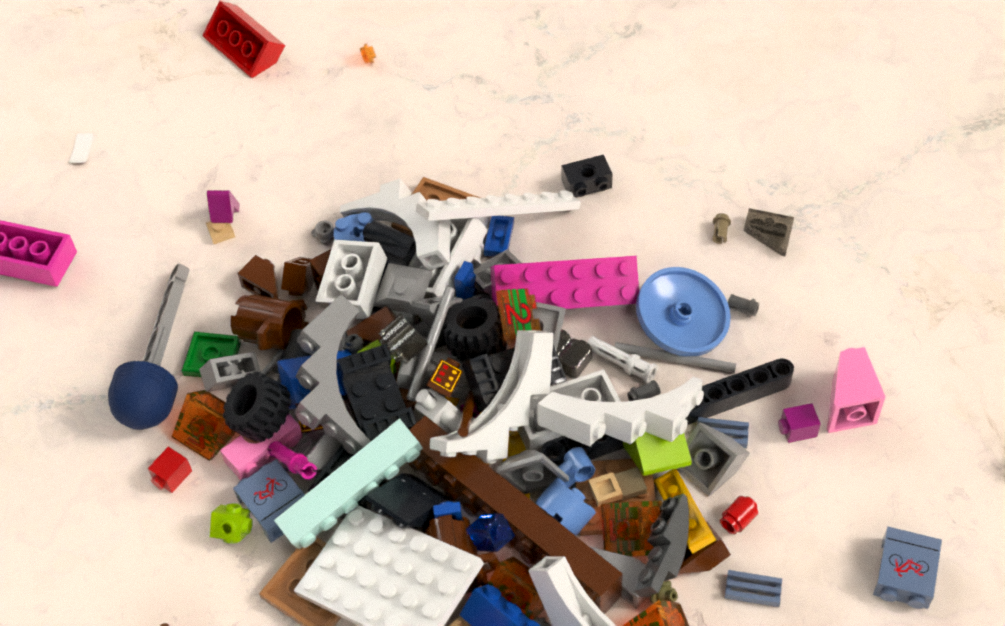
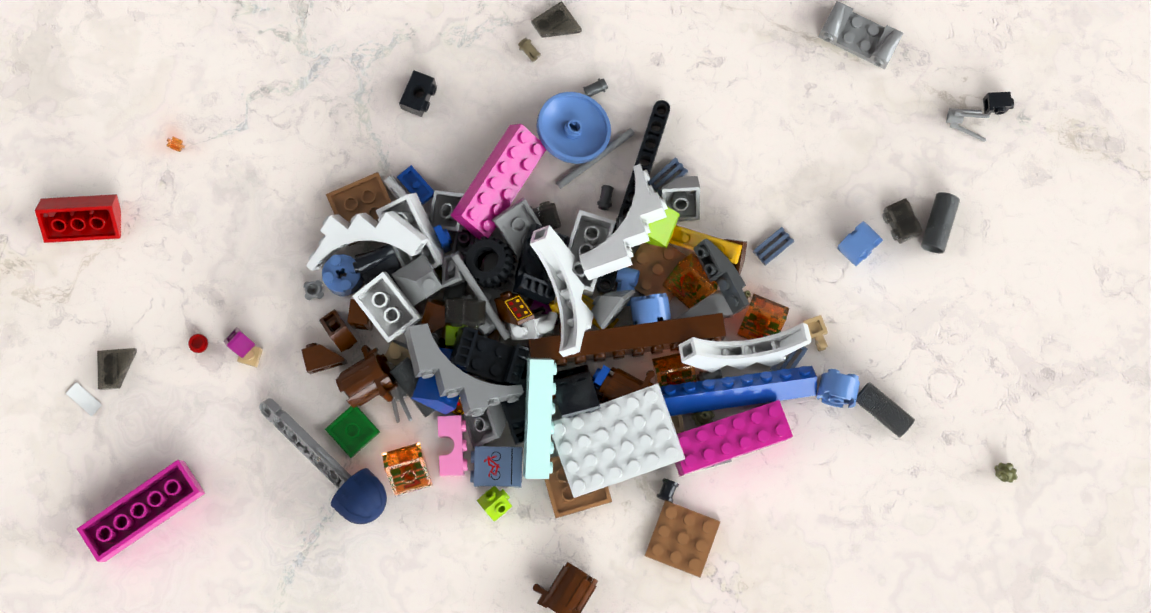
camera: 55 degrees left, 25 degrees up
(126, 145) = (113, 367): none -> clear smoke wing
(169, 470) = (423, 514): red brick -> none
(198, 186) = (198, 343): none -> red plate
(226, 371) = (385, 429): light grey brick -> none
(257, 406) = (424, 442): black tyre -> none
(296, 462) = (497, 438): dark pink pin -> none
(466, 415) = (551, 315): reddish brown bar -> none
(490, 532) = (635, 362): clear blue brick -> none
(495, 206) = (409, 173): white plate -> none
(516, 312) = (510, 232): slope -> none
(605, 489) = (655, 275): tan plate -> none
(631, 363) = (580, 187): white pin -> none
(631, 483) = (661, 258): dark tan tile -> none
(739, 514) = (727, 215): red brick -> none
(799, 423) = (700, 131): magenta brick -> none
(855, 392) = (709, 84): bright pink slope -> none
(908, 568) = (832, 156): sand blue panel -> none

